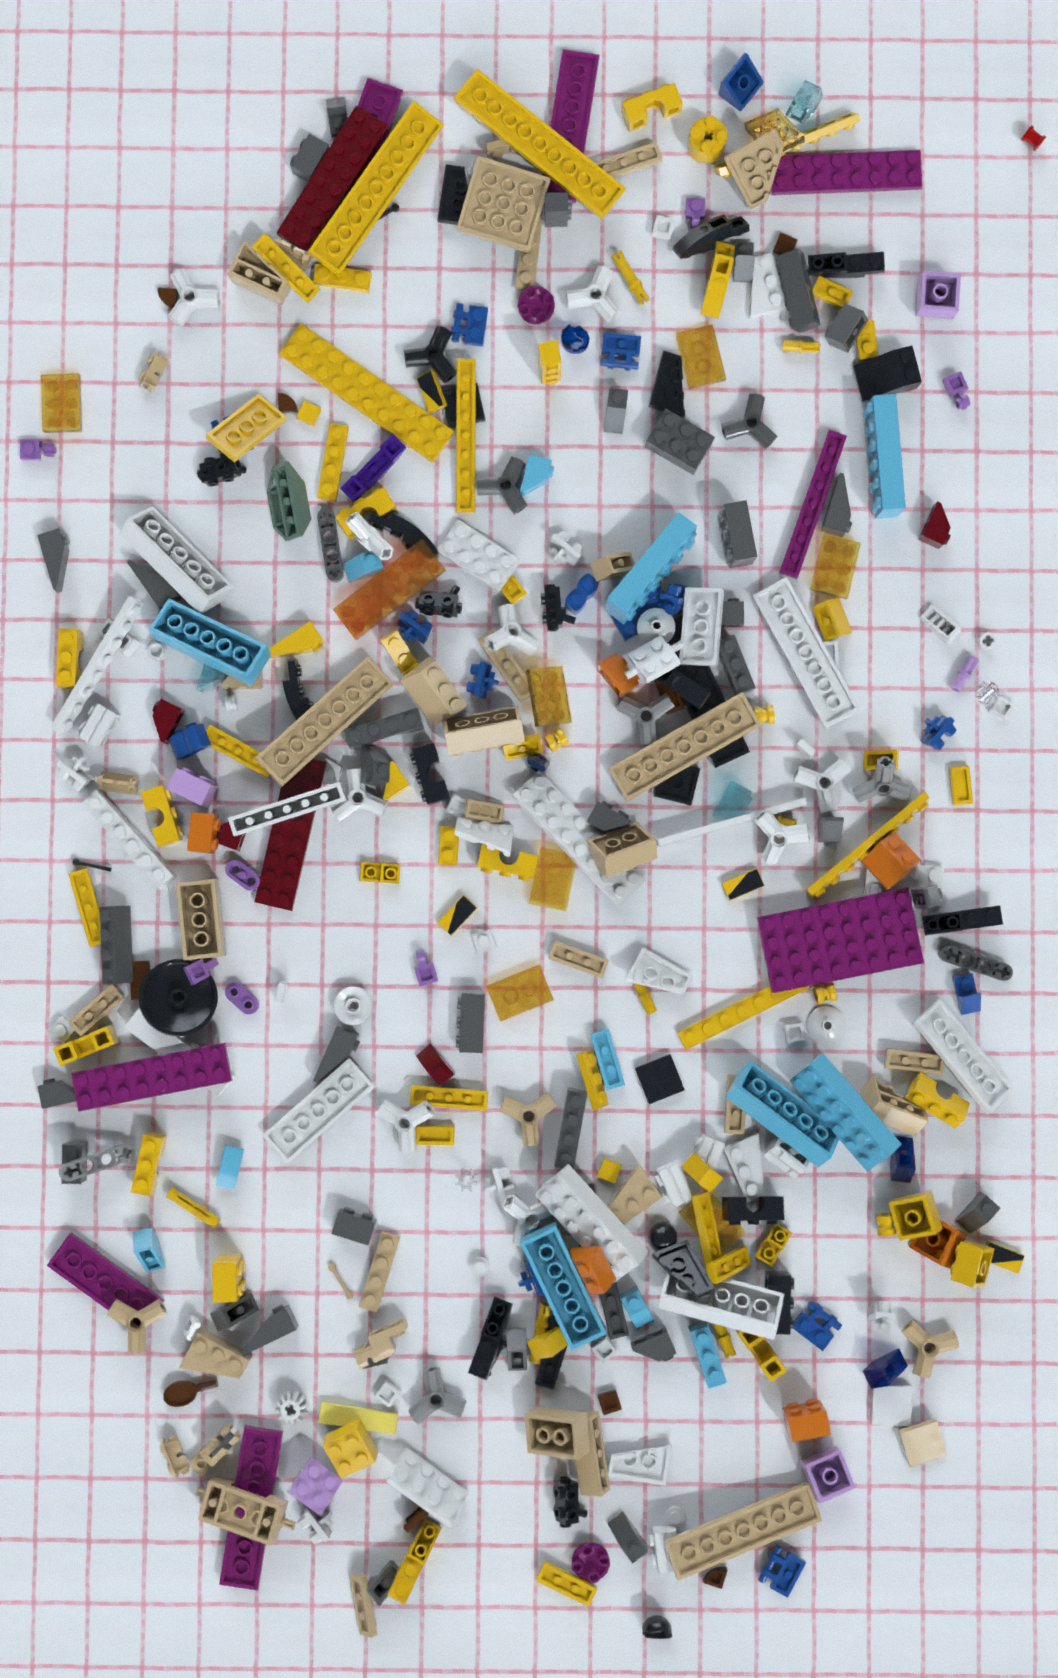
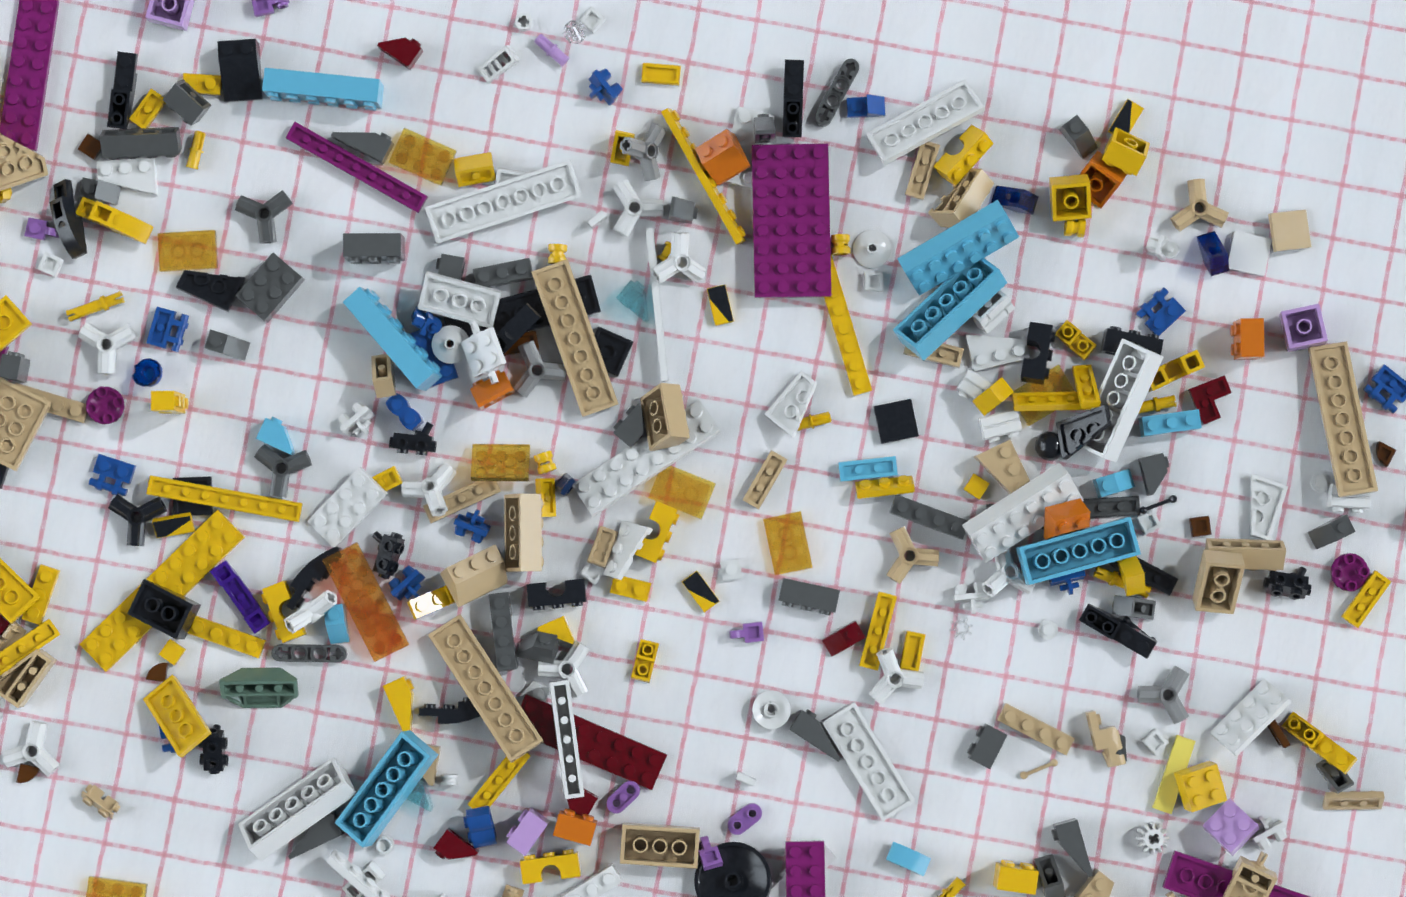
camera: 80 degrees left, 0 degrees up
(347, 396) = (164, 609): none -> black slope
(631, 1368) = (1172, 499): none -> black hinge
(739, 1385) = (1204, 396): none -> dark red plate

